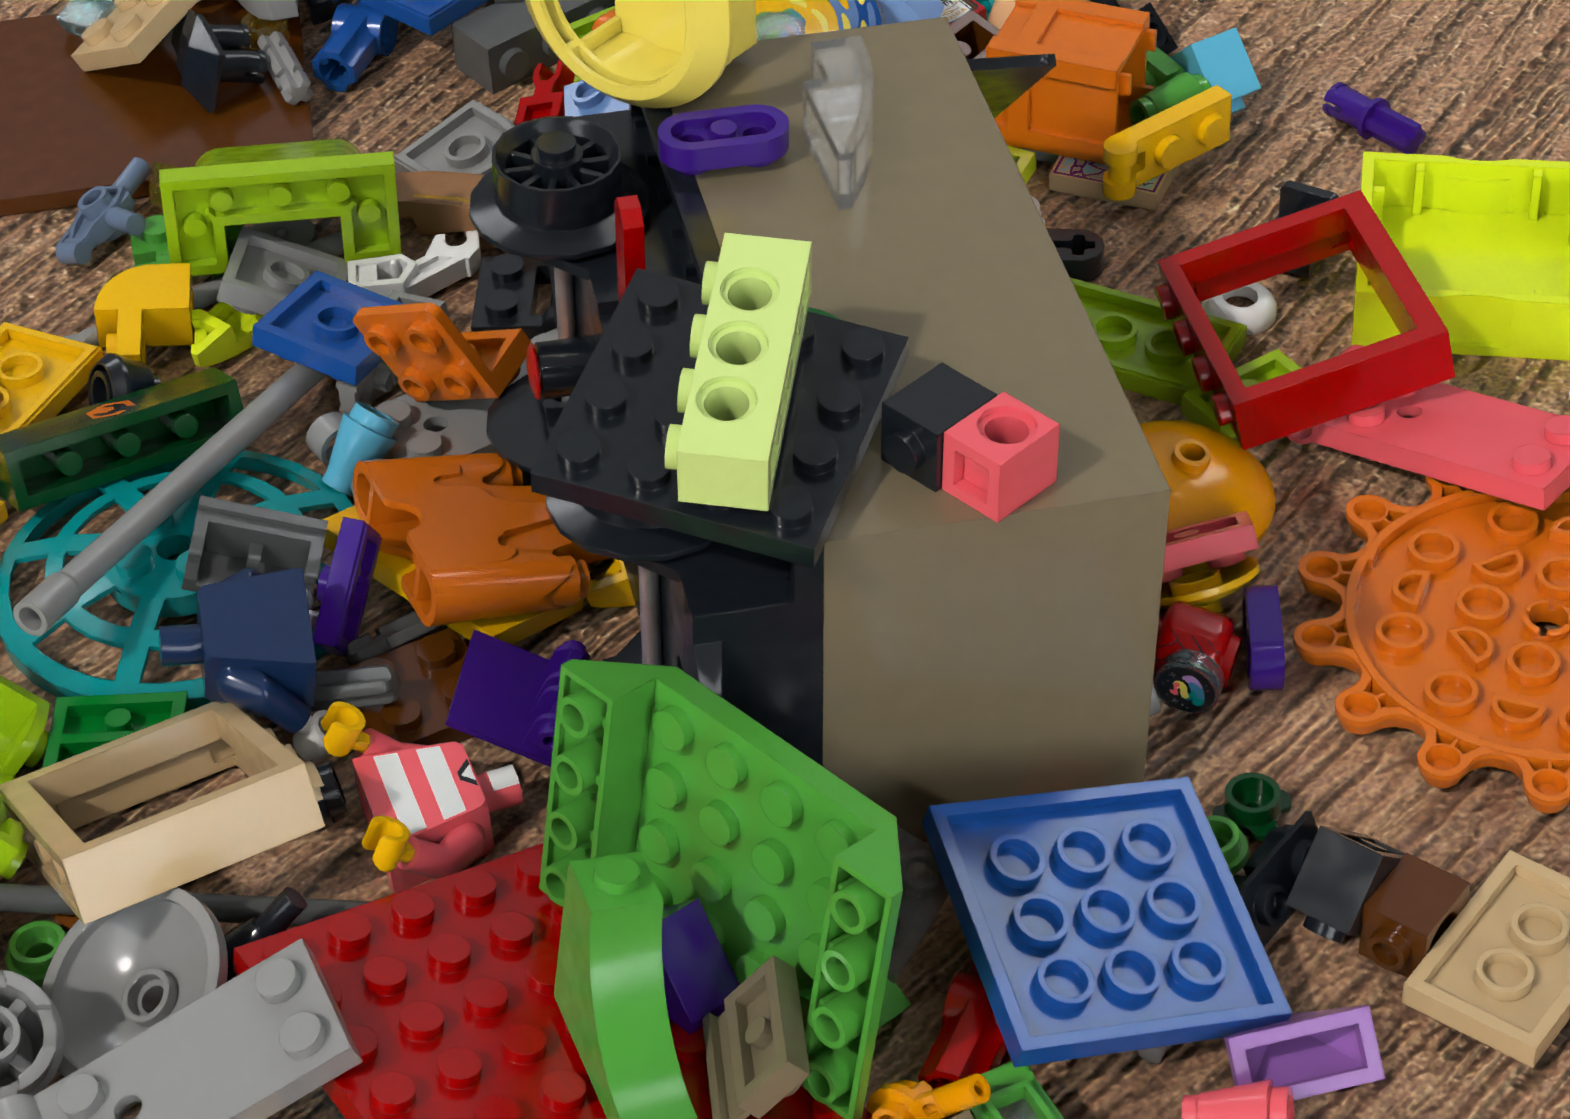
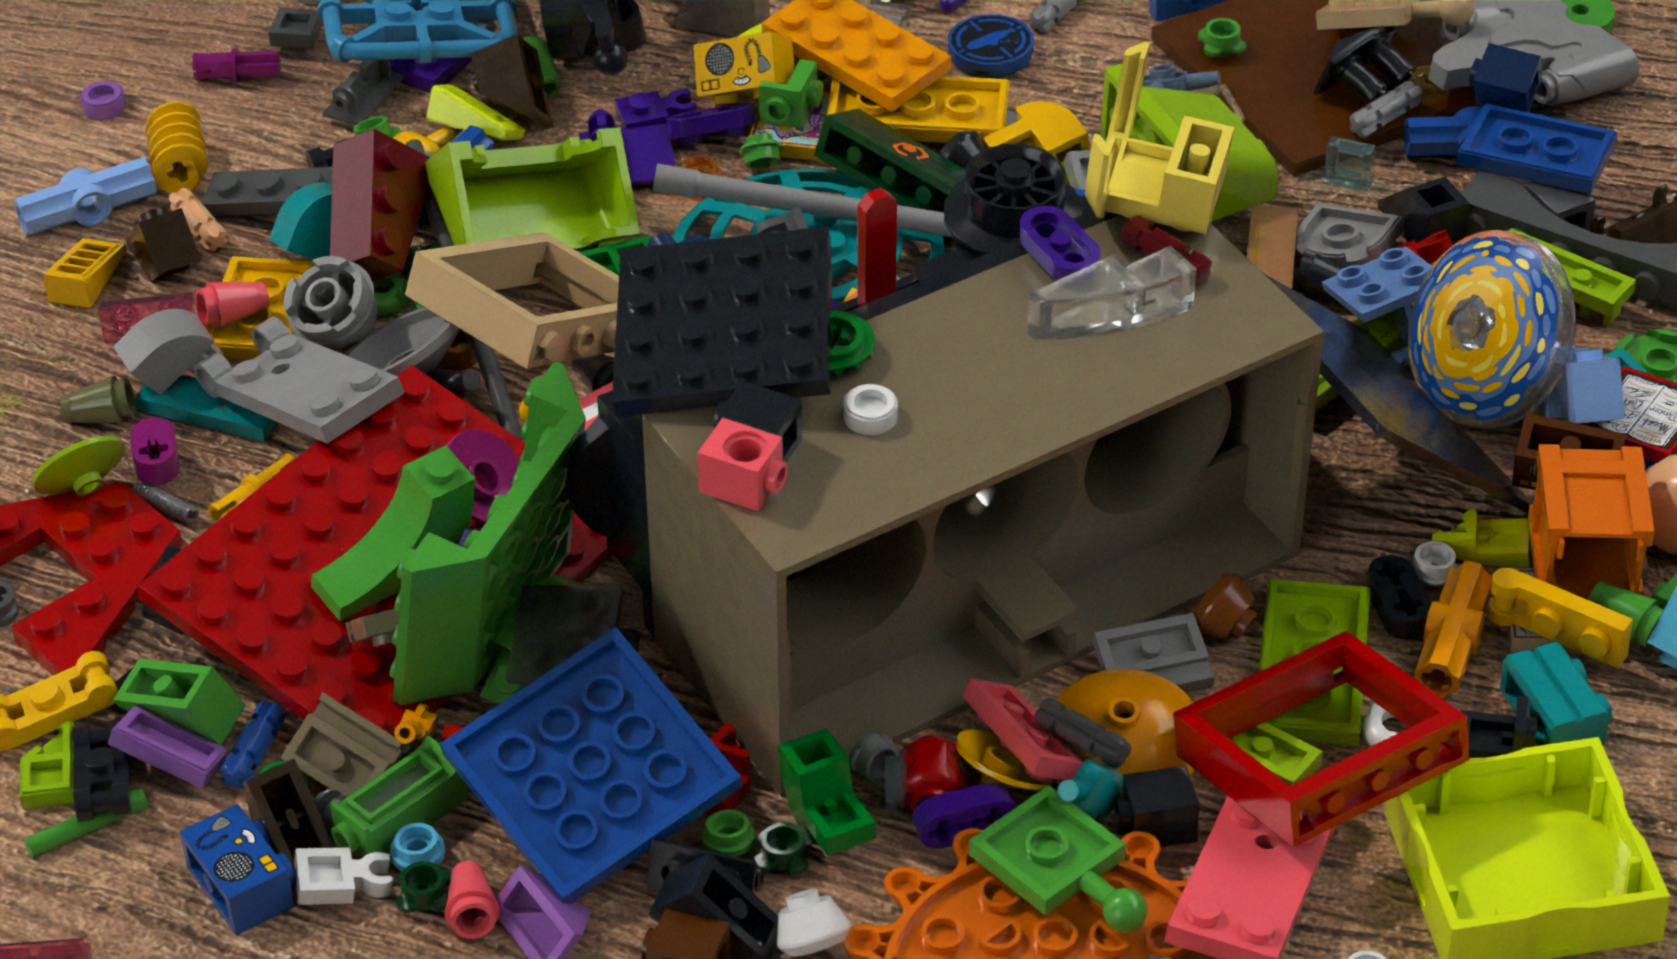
camera: 70 degrees right, 0 degrees up
(67, 146) = (1222, 38): none -> bright green plate
(349, 114) = (1349, 163): none -> clear light blue tile
(478, 69) = (1429, 210): none -> black slope
(516, 912) = (490, 463): none -> dark pink dish
(742, 372) = (719, 297): yellowish green brick -> none
(762, 76) = (1139, 234): none -> dark red axle
(930, 343) = (870, 409): none -> white tile
(1124, 222) = (1454, 628): none -> light orange piece
(1210, 742) = (821, 792): none -> green brick
(1214, 492) = (1083, 732): none -> dark grey axle
(1246, 182) = (1556, 695): none -> teal brick
(1286, 520) = (1093, 788): none -> teal piece
(1312, 484) = (1159, 804): none -> black brick
(1388, 562) = (1053, 852): none -> bright green plate
(1411, 796) = (810, 924): none -> white cone

